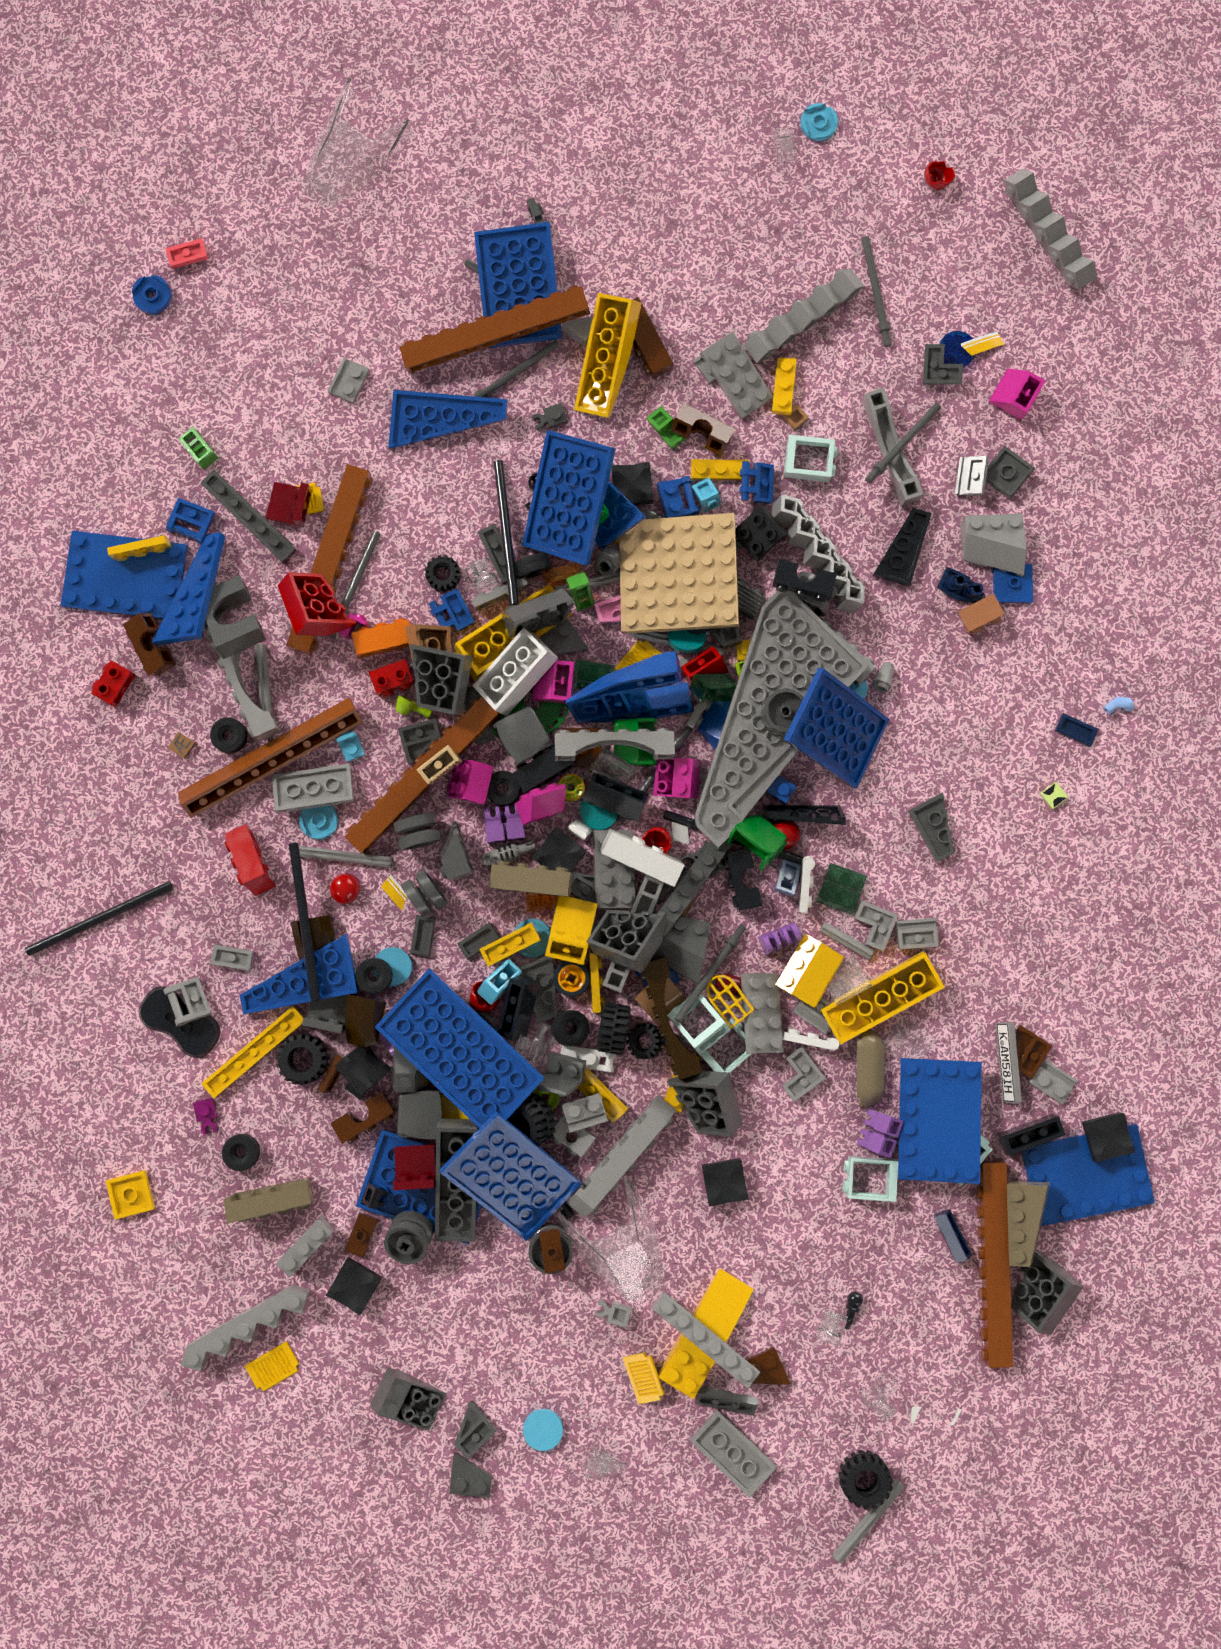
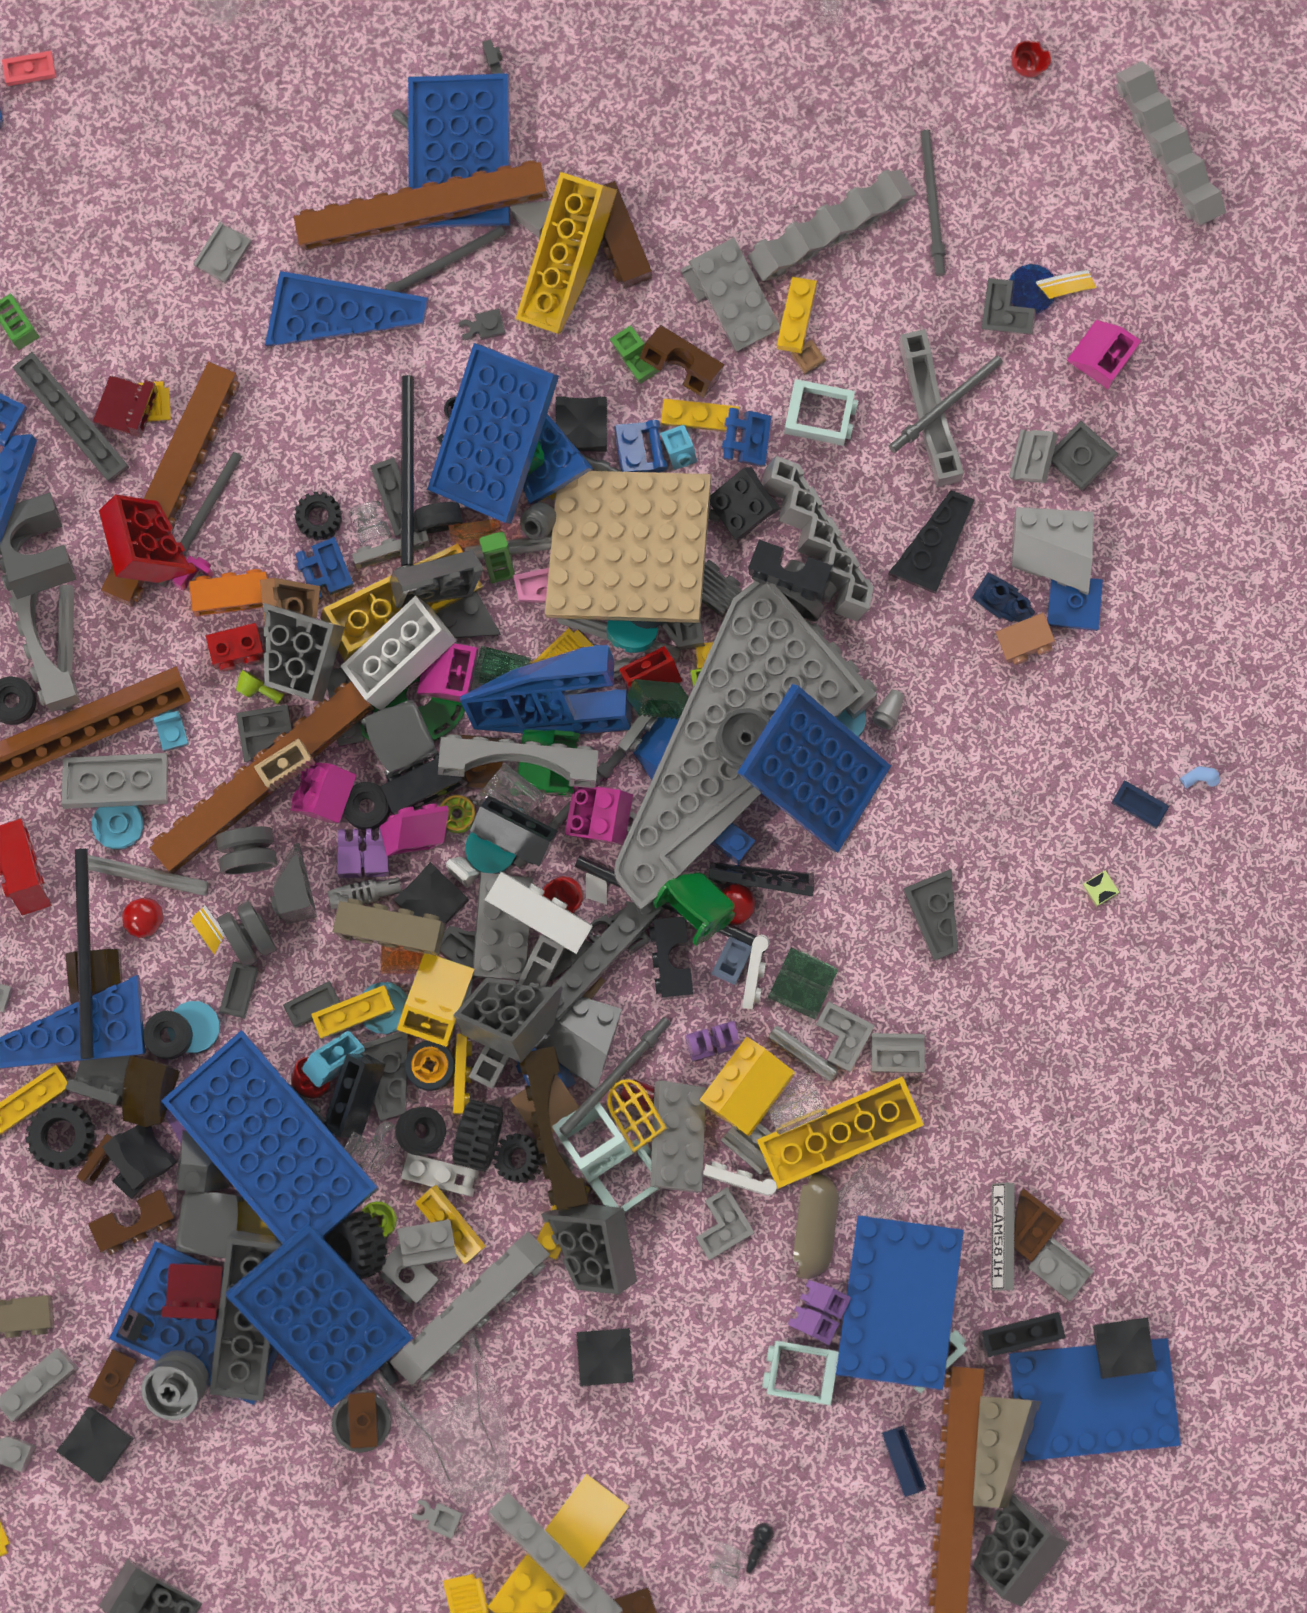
camera: 10 degrees right, 5 degrees down
(563, 1074) = (404, 1189): dark grey bracket -> none

